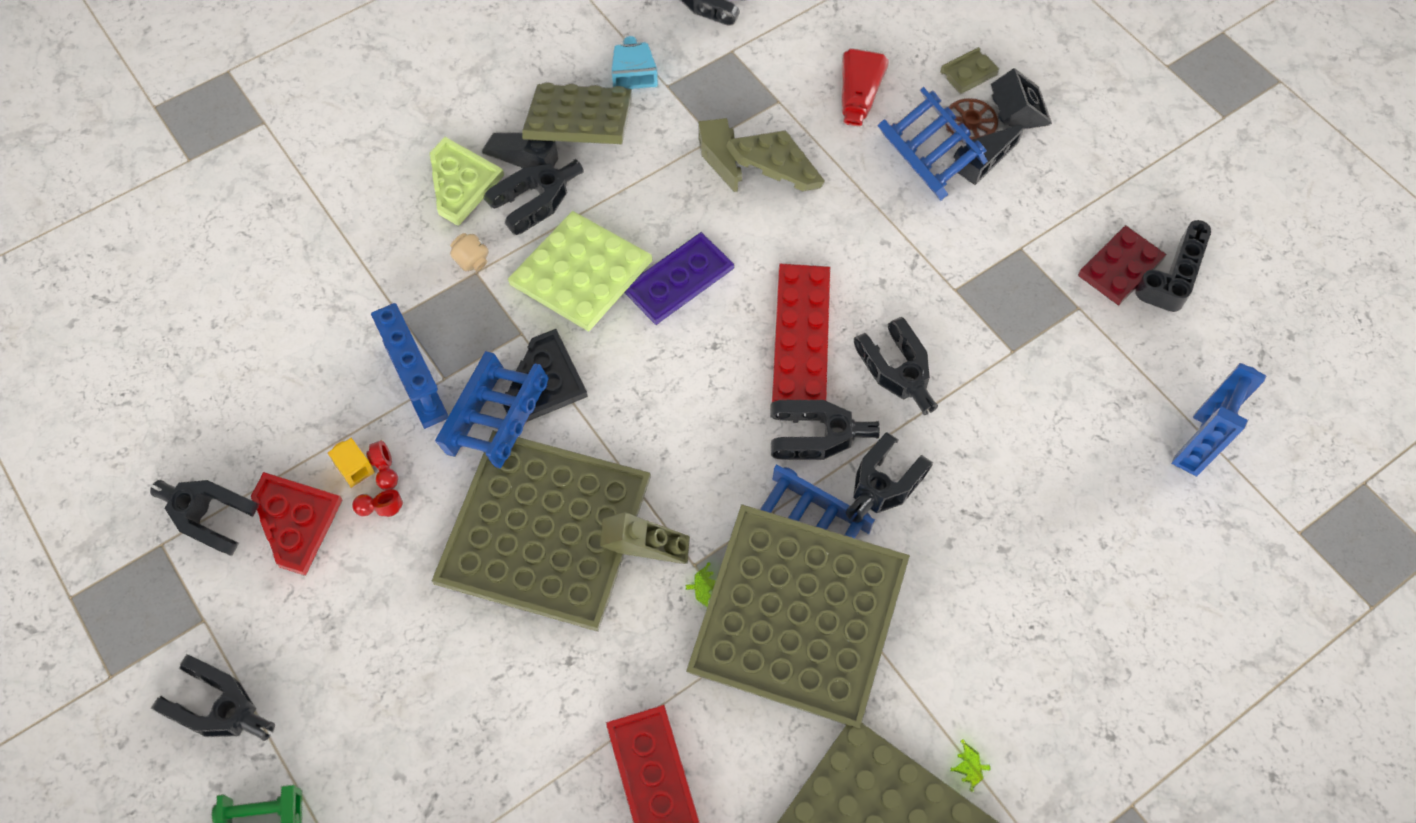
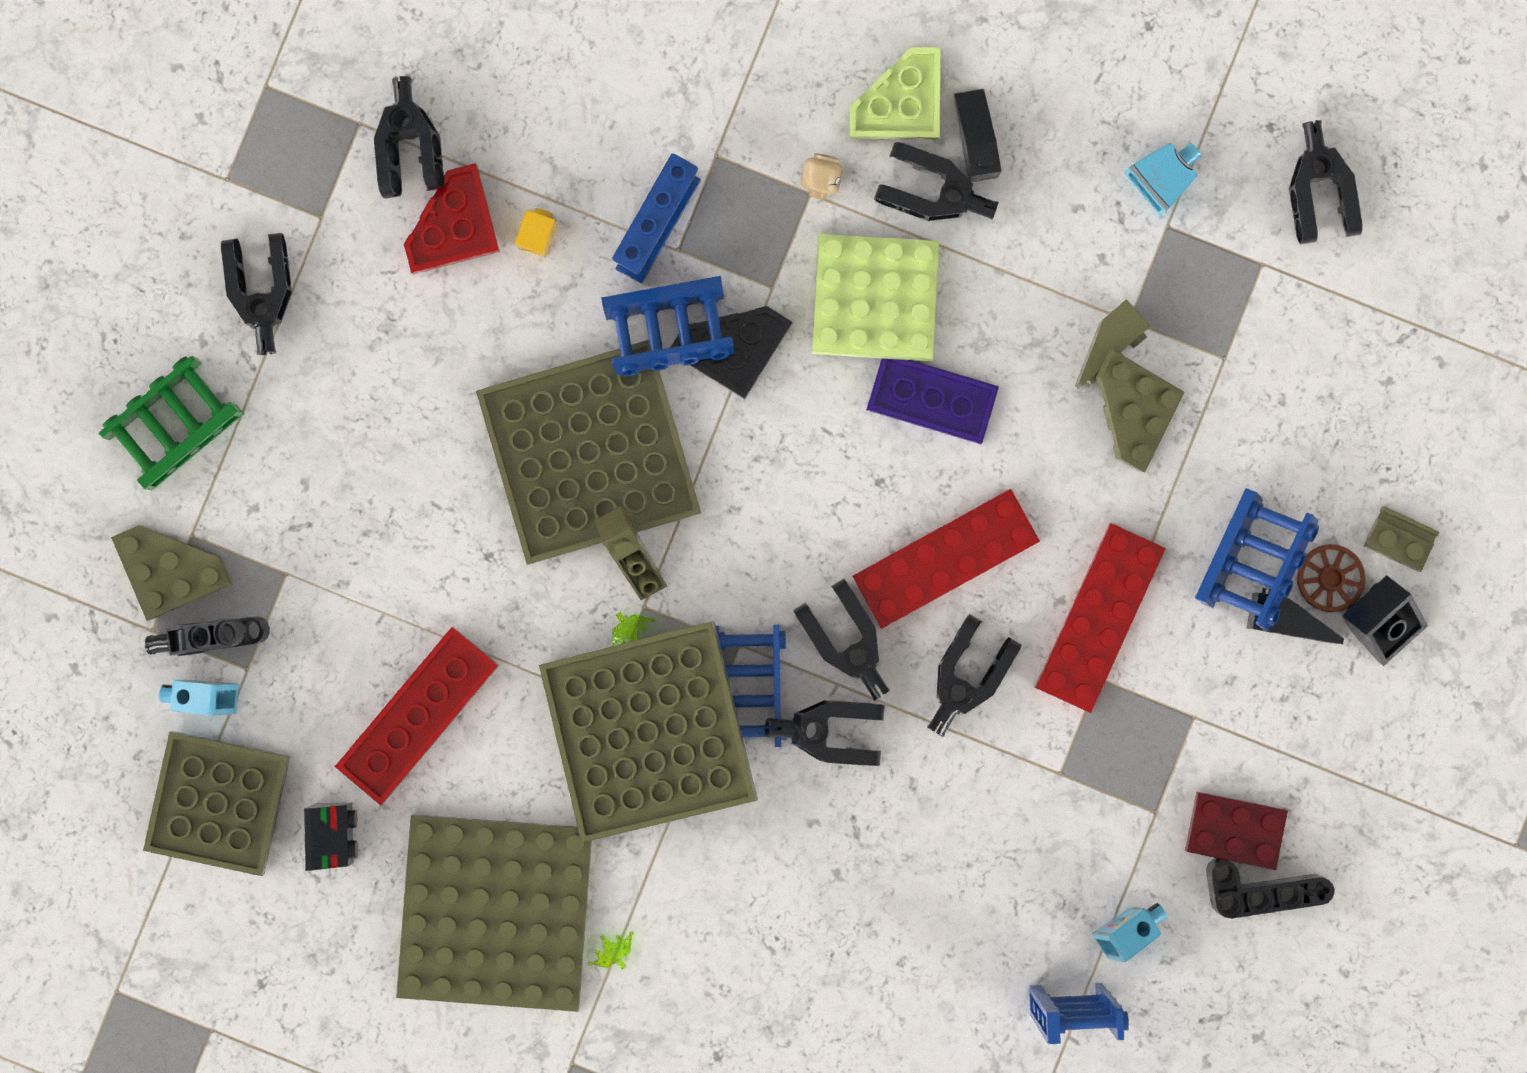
camera: 60 degrees right, 25 degrees up
(381, 458) = (558, 256): red plate -> none
(385, 503) = (508, 275): red plate -> none
(578, 113) = (1055, 167): olive plate -> none
(861, 79) = (1300, 434): red piece -> none
(912, 264) = (1100, 617): none -> red plate
(1167, 366) = (1130, 932): none -> medium azure torso

